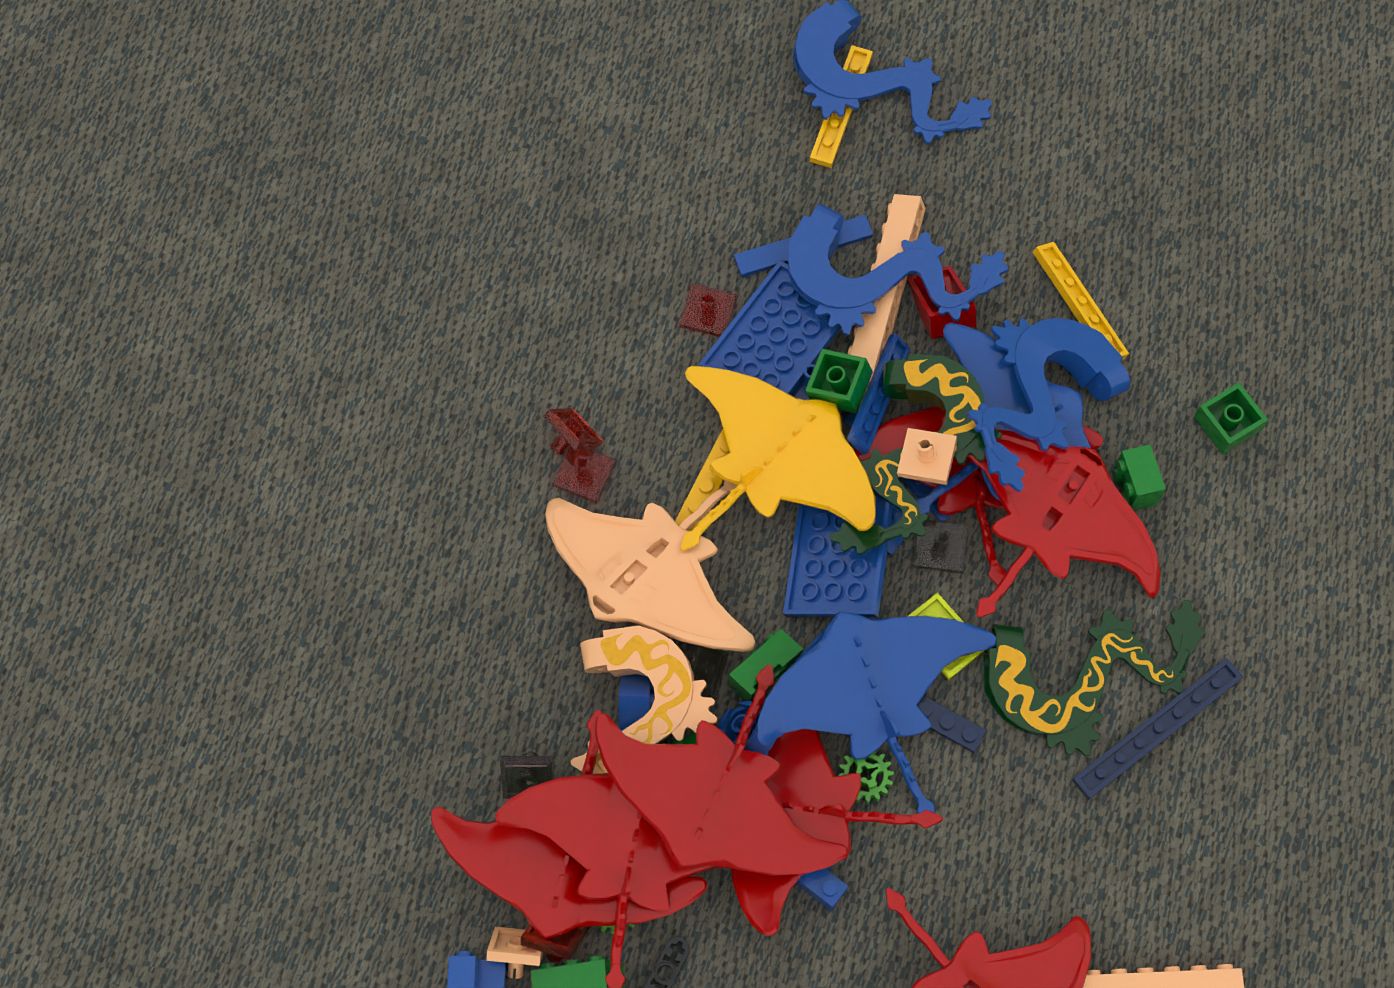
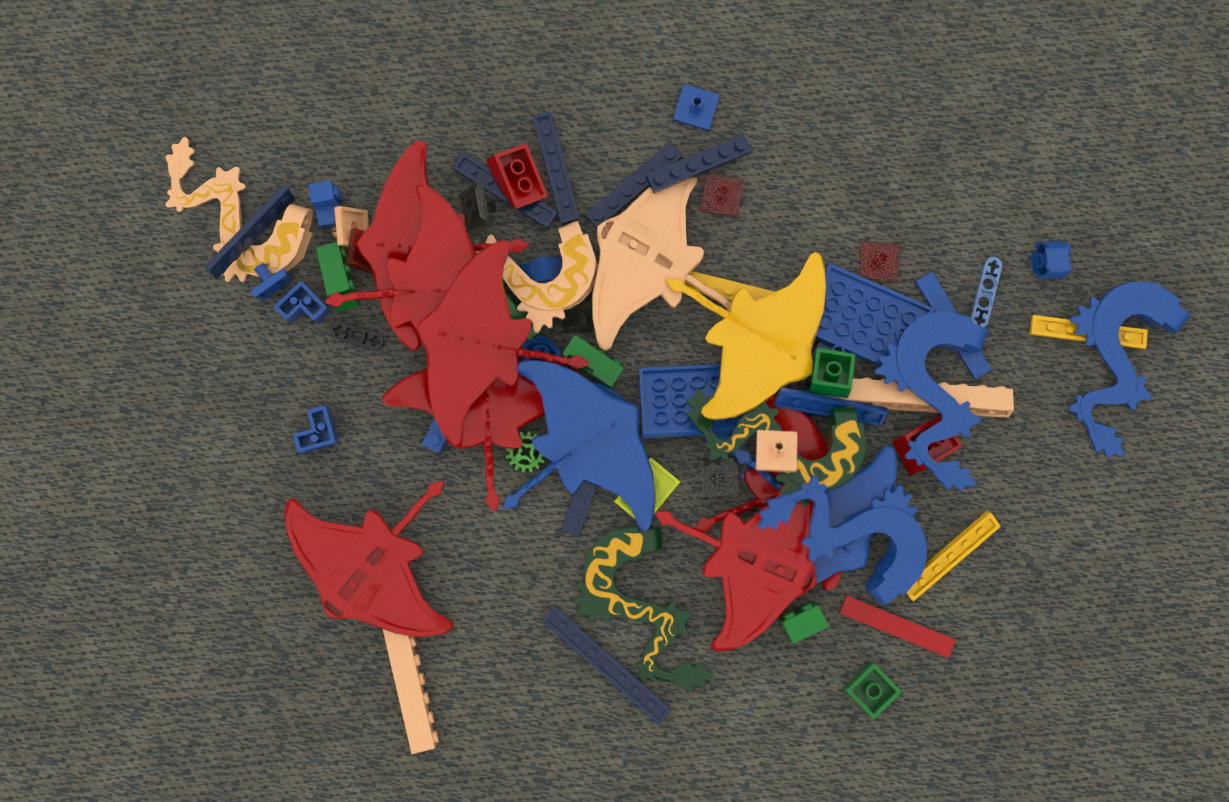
camera: 80 degrees right, 15 degrees up
(464, 481) = (696, 107): none -> blue tile
(499, 666) = (556, 168): none -> dark blue plate
(500, 713) = (517, 176): none -> red slope
(513, 736) = (481, 174): none -> dark blue plate
(540, 489) = (698, 164): none -> dark blue plate
(545, 576) = (632, 185): none -> dark blue plate
(572, 430) = (752, 177): clear red tile -> none
(749, 124) = (1051, 260): none -> blue brick
(774, 200) = (989, 294): none -> medium blue beam
(1155, 379) = (897, 626): none -> red tile

